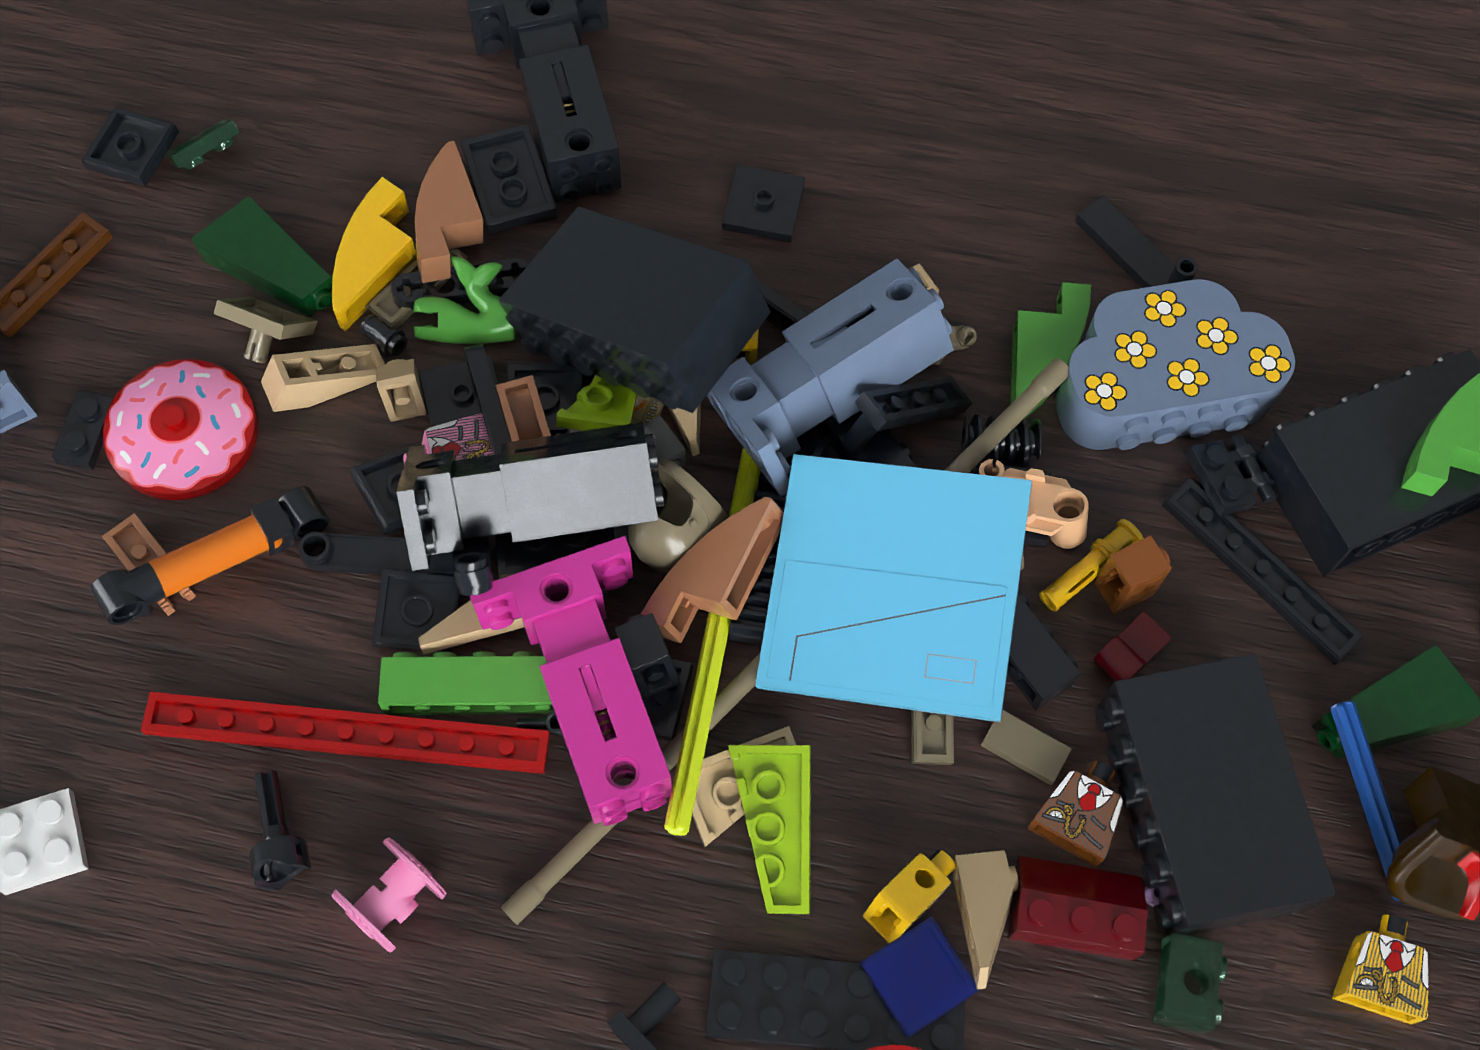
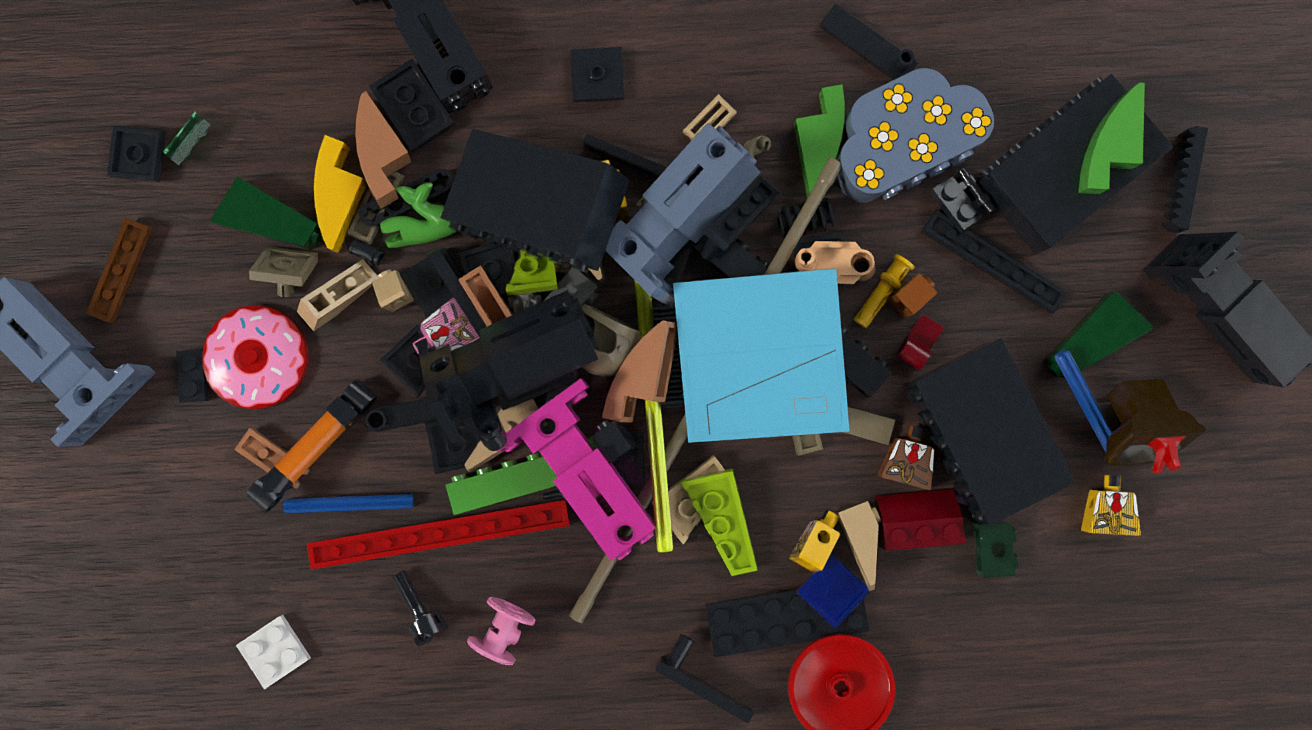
camera: 10 degrees left, 20 degrees up
(232, 656) = (348, 503): none -> blue axle

